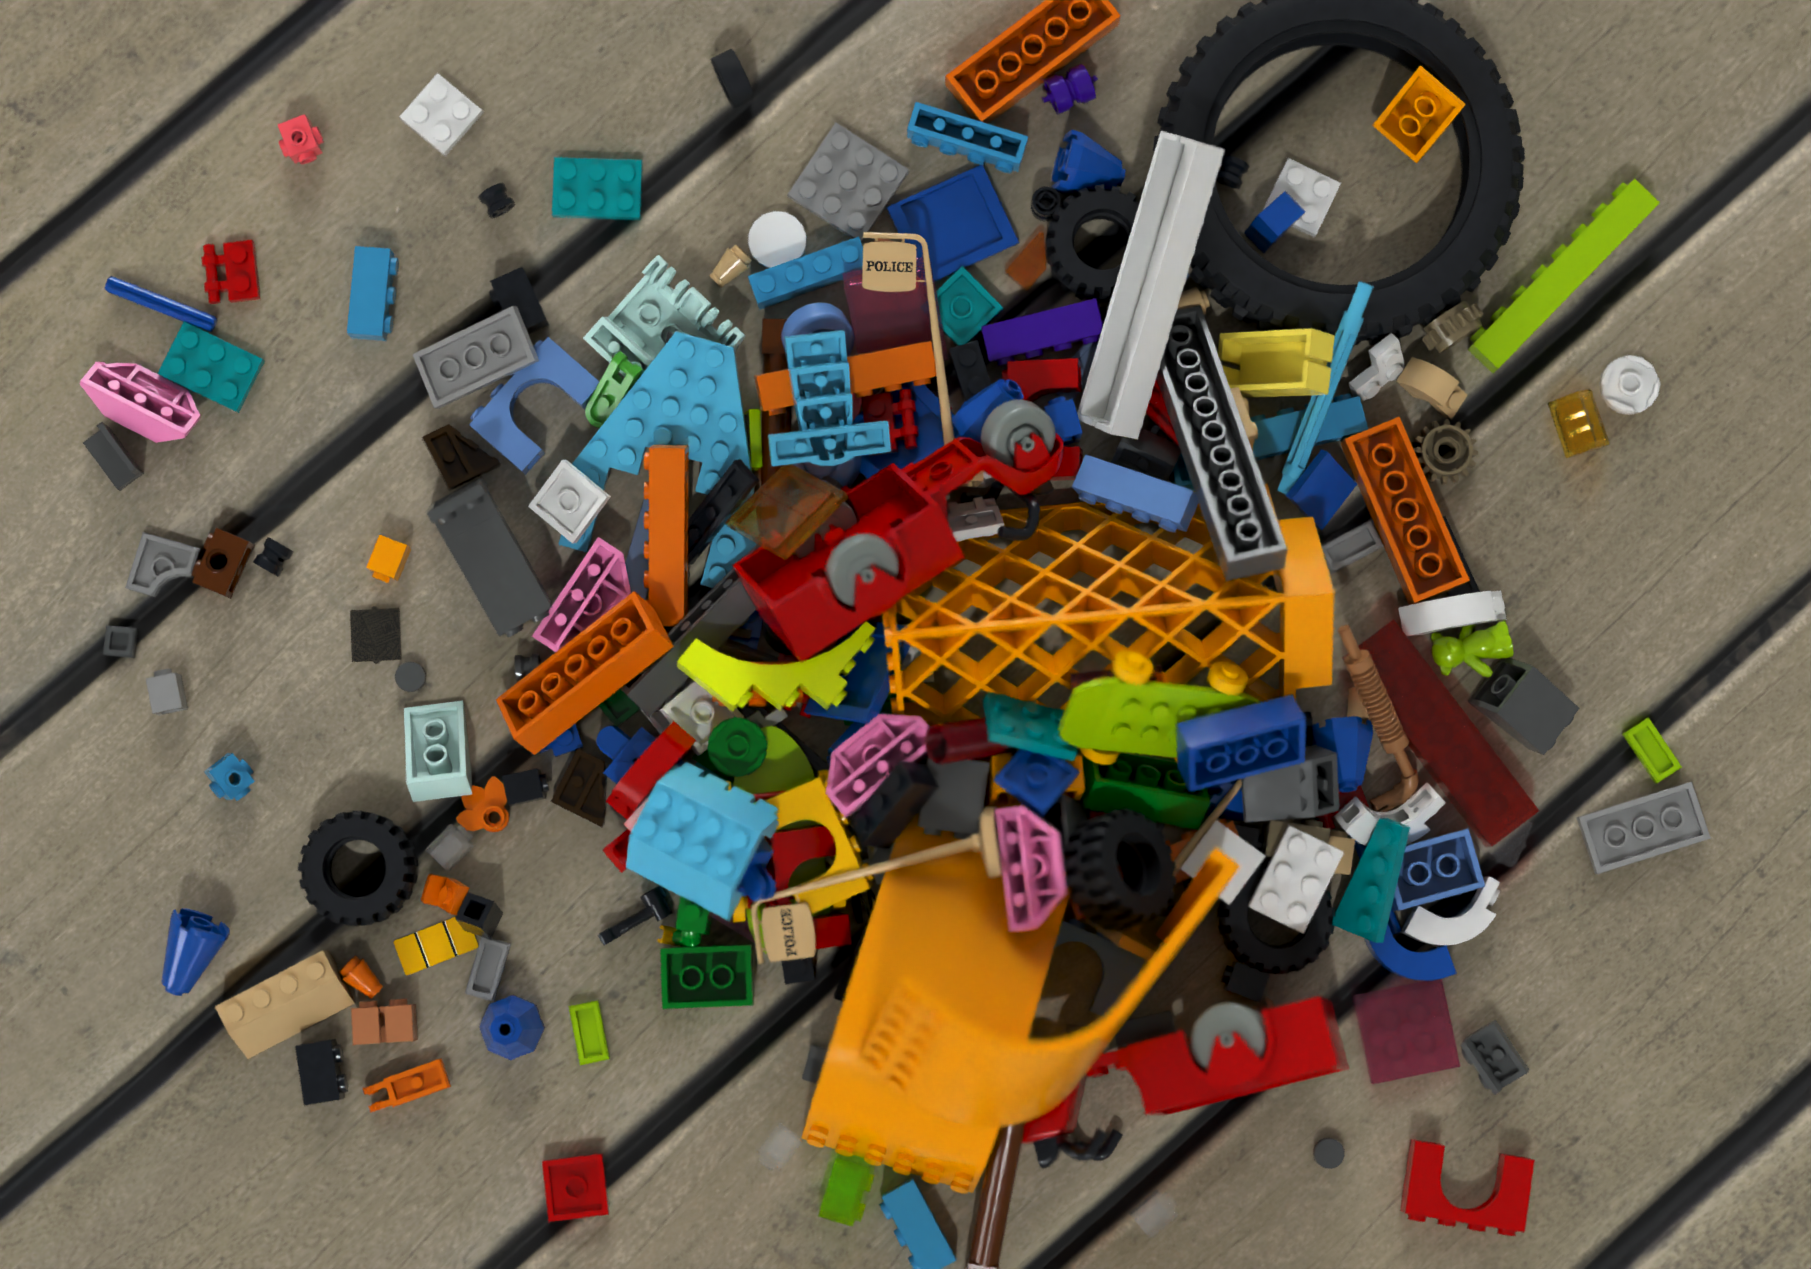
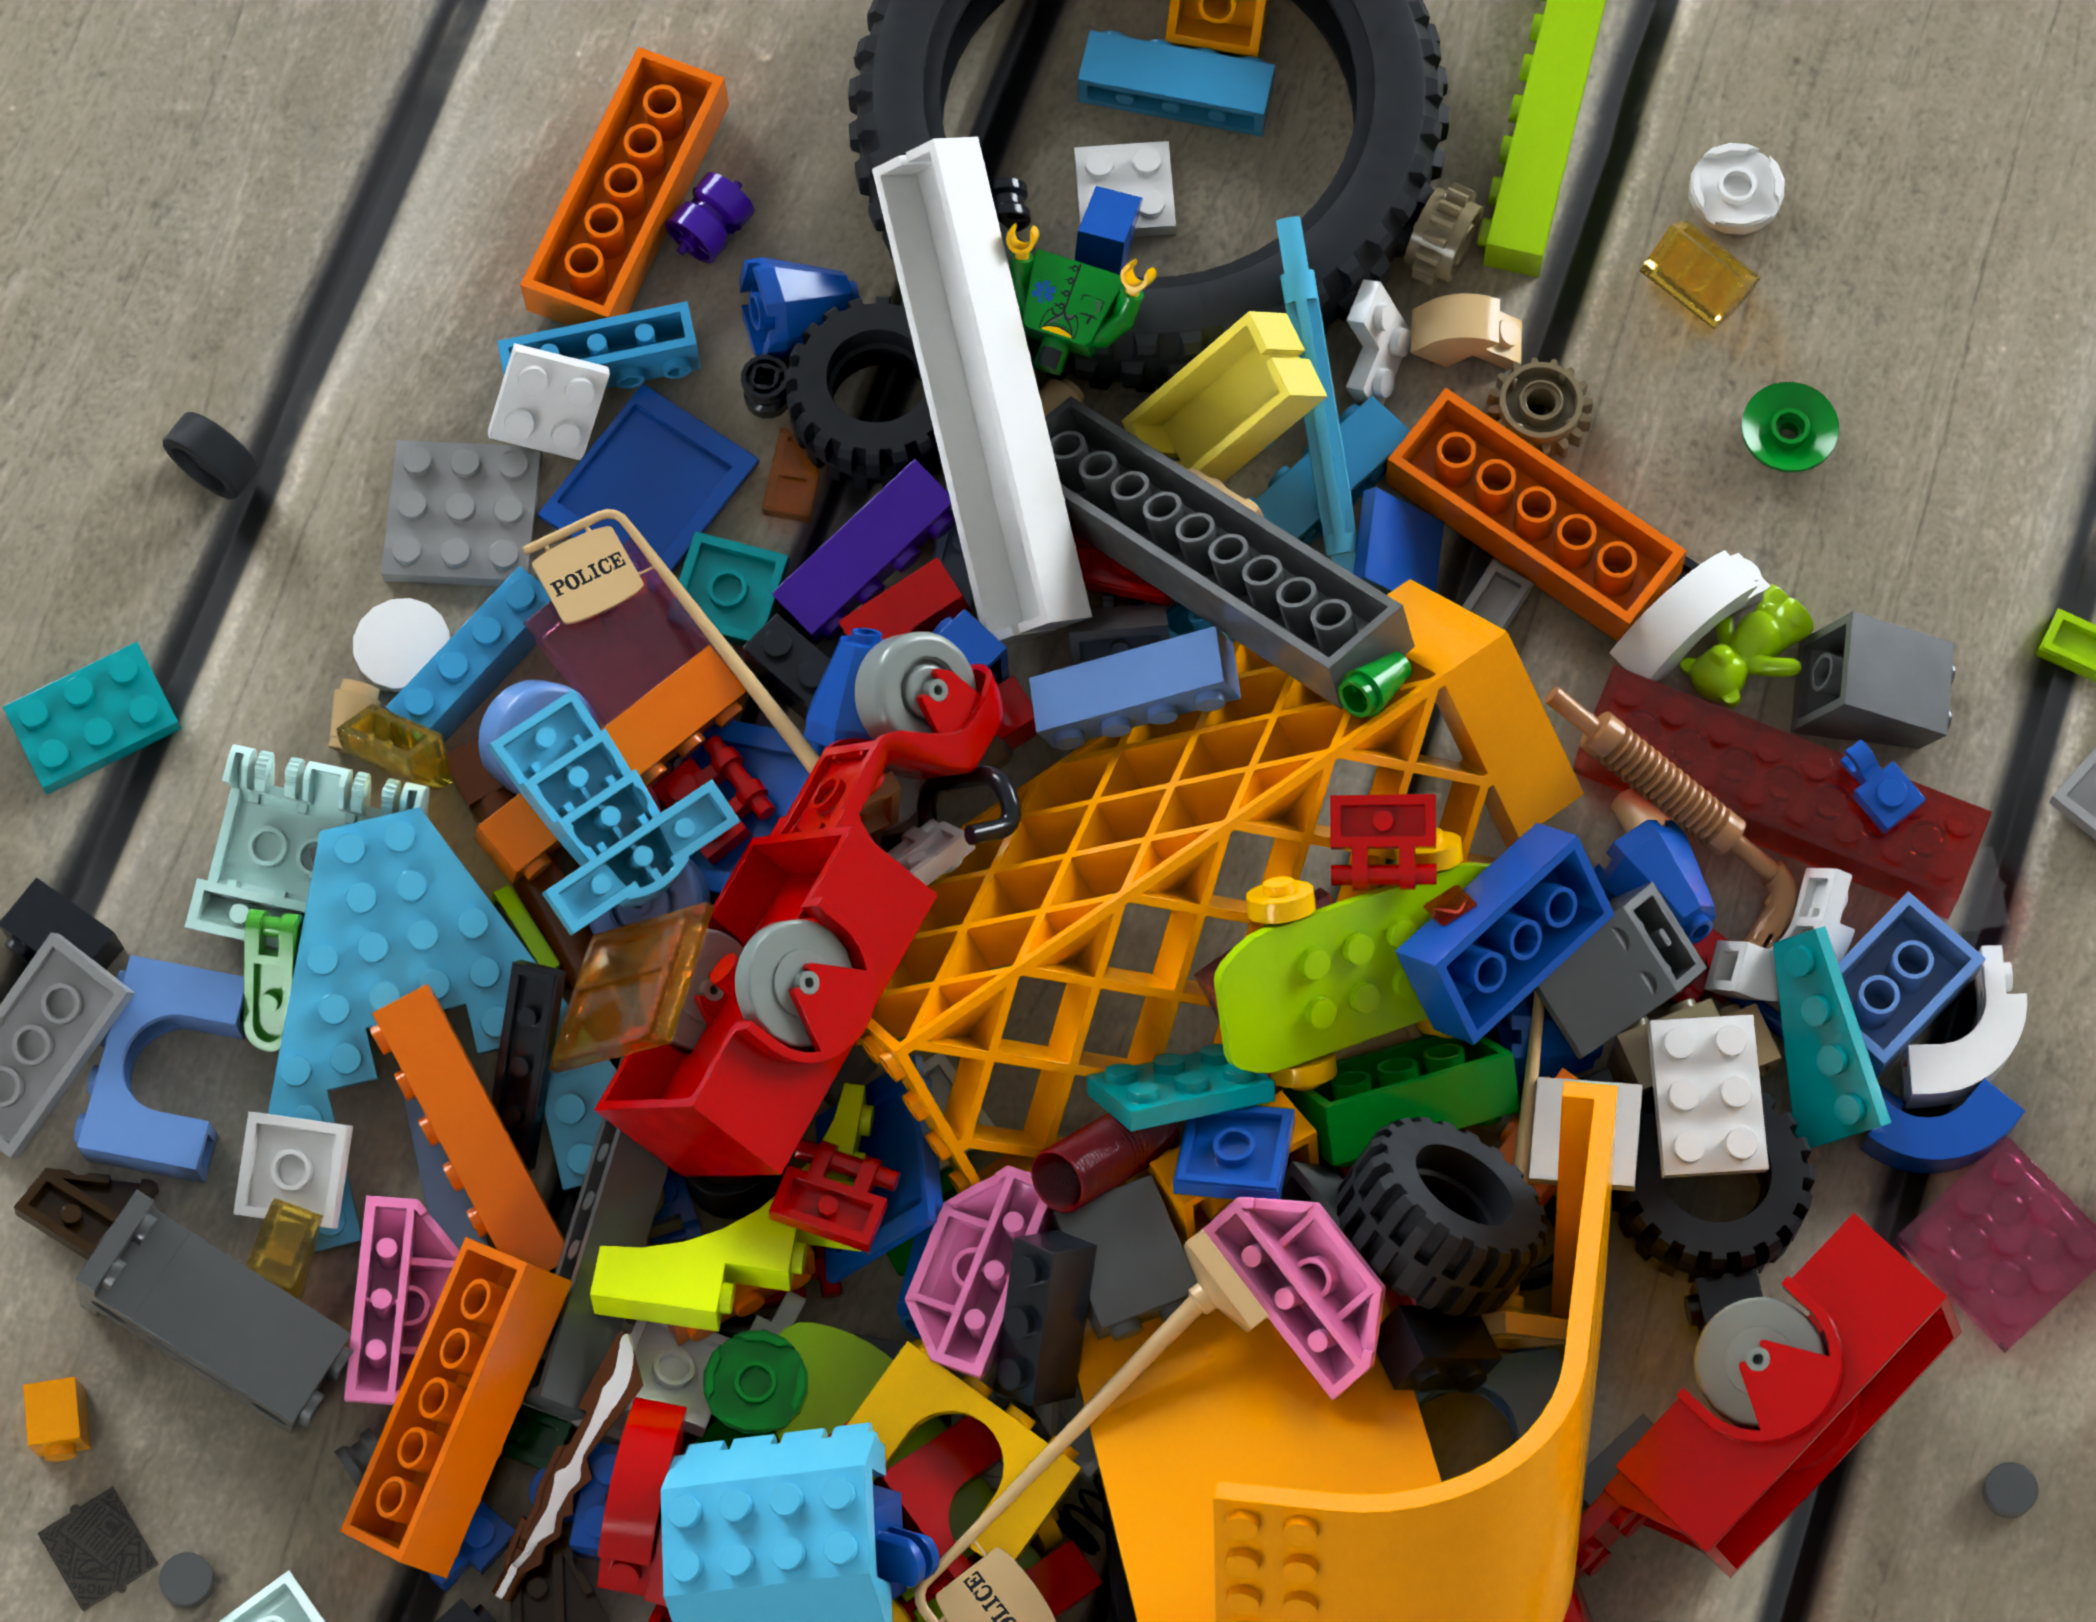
camera: 25 degrees left, 15 degrees down
(543, 539) = (286, 1246): none -> clear yellow slope
(622, 736) = (569, 1471): none -> reddish brown sword
(741, 301) = (396, 746): none -> clear yellow brick
(820, 686) = (830, 1207): none -> red plate
(924, 151) = (548, 402): none -> white plate
(1076, 935) = (1435, 1350): none -> black brick
(1210, 656) = (1383, 823): none -> red plate
(1219, 715) = (1449, 905): none -> clear red sticker
(1224, 263) = (1071, 302): none -> green torso
(1246, 581) = (1372, 685): none -> green cone
(1365, 151) = (1176, 82): none -> dark azure brick
(1488, 772) = (1884, 793): none -> blue plate
(1582, 529) = (1792, 408): none -> green dish

